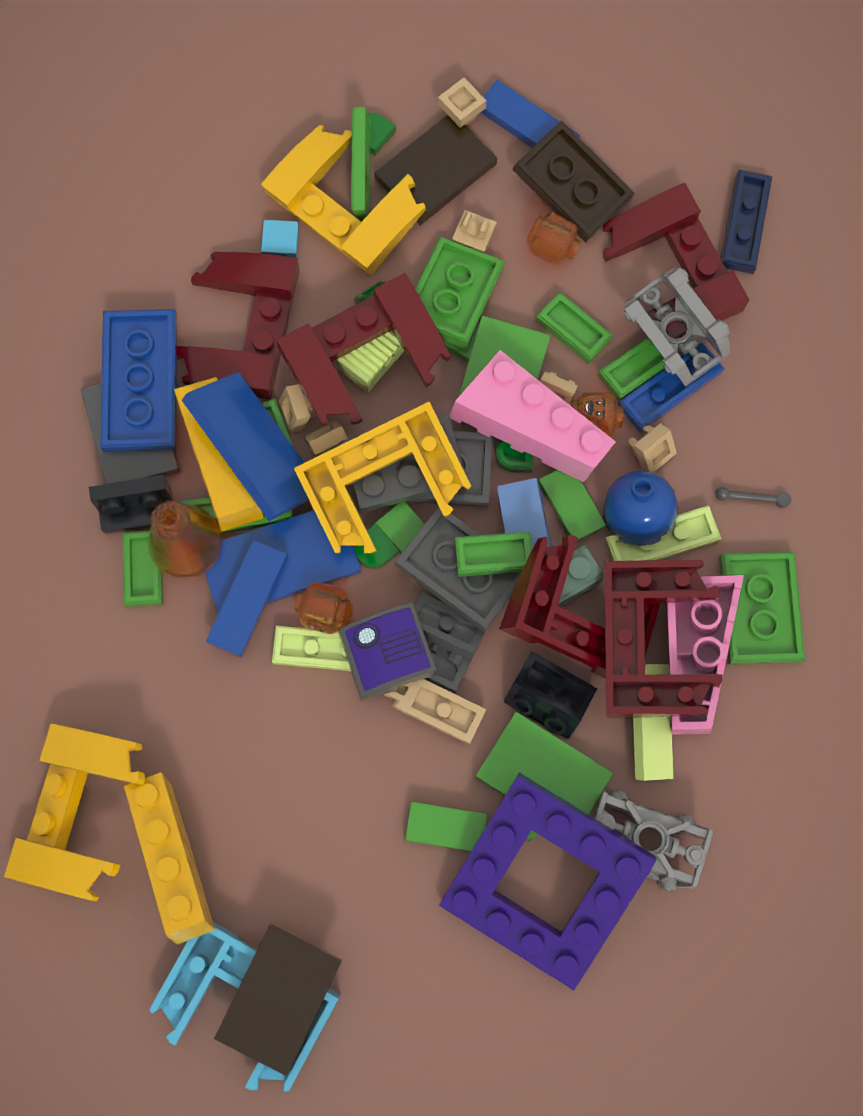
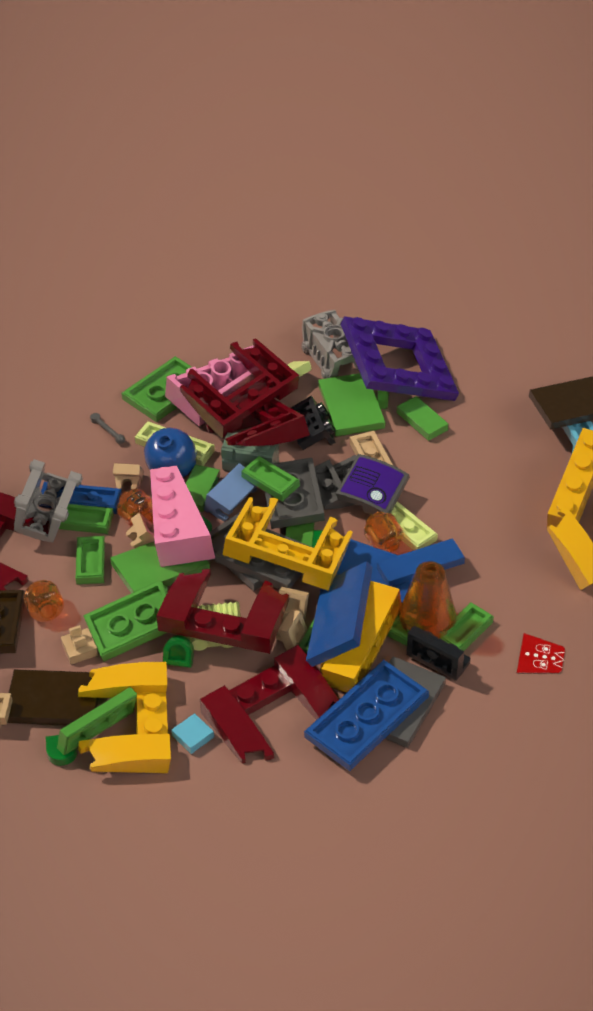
camera: 130 degrees left, 30 degrees down
(45, 605) = (540, 656): none -> red sticker

